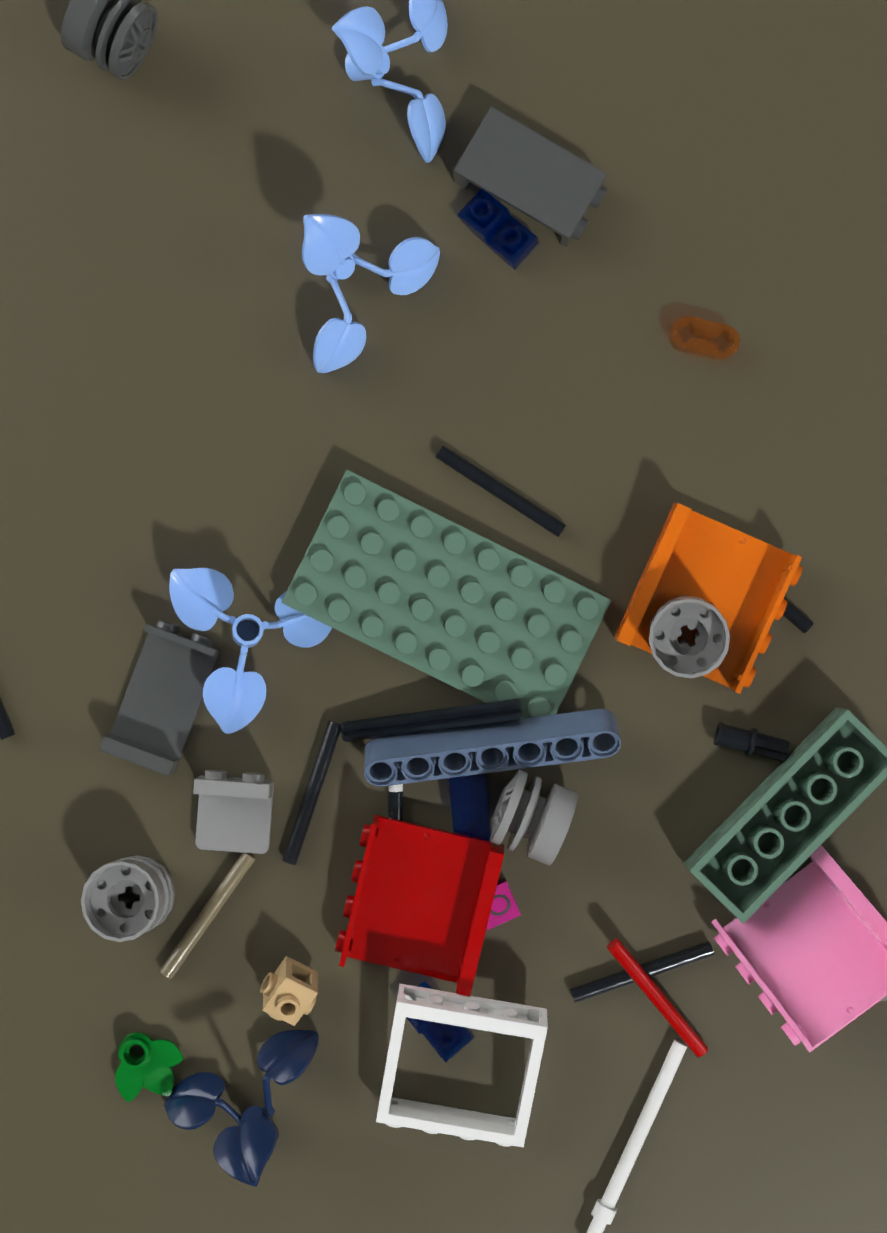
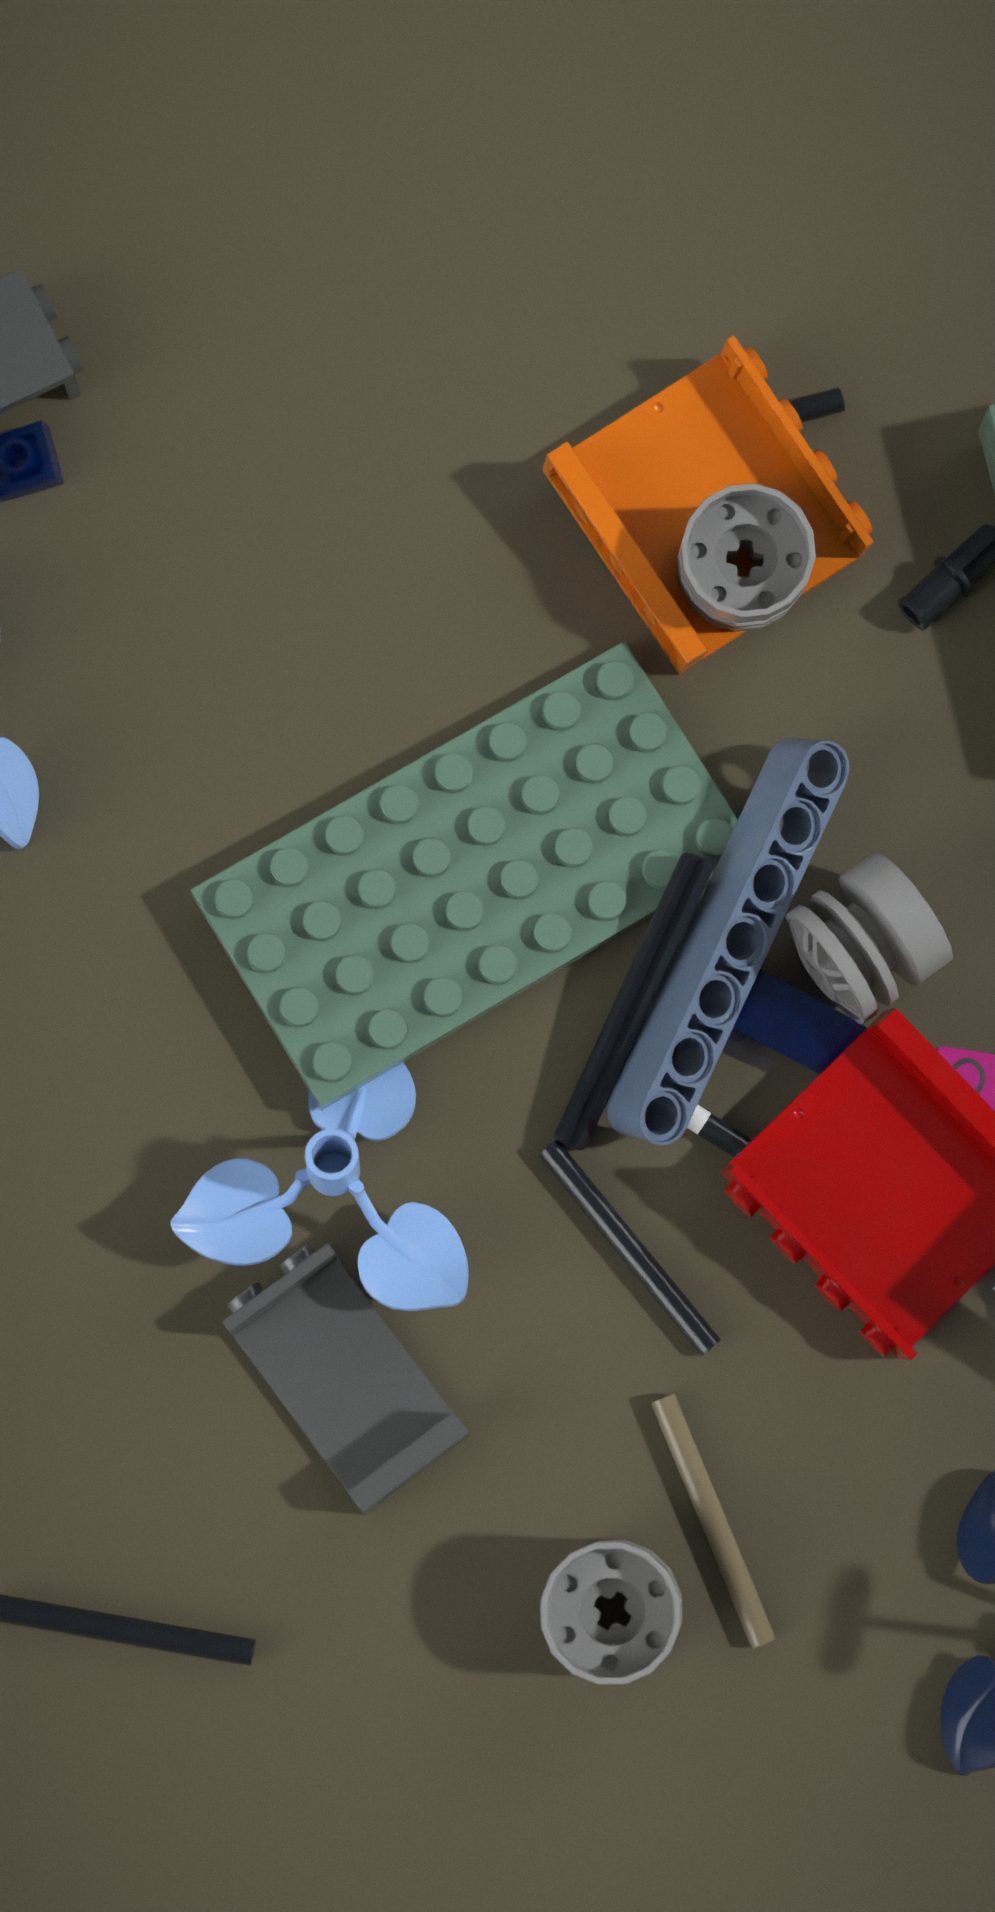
camera: 60 degrees left, 10 degrees down
(147, 1070) = (894, 1762): green plate -> none
(234, 812) = (584, 1378): light grey bracket -> none
(290, 991) = (905, 1462): tan brick -> none
(500, 491) = (366, 699): black bar -> none
(706, 329) = (328, 277): clear orange beam -> none

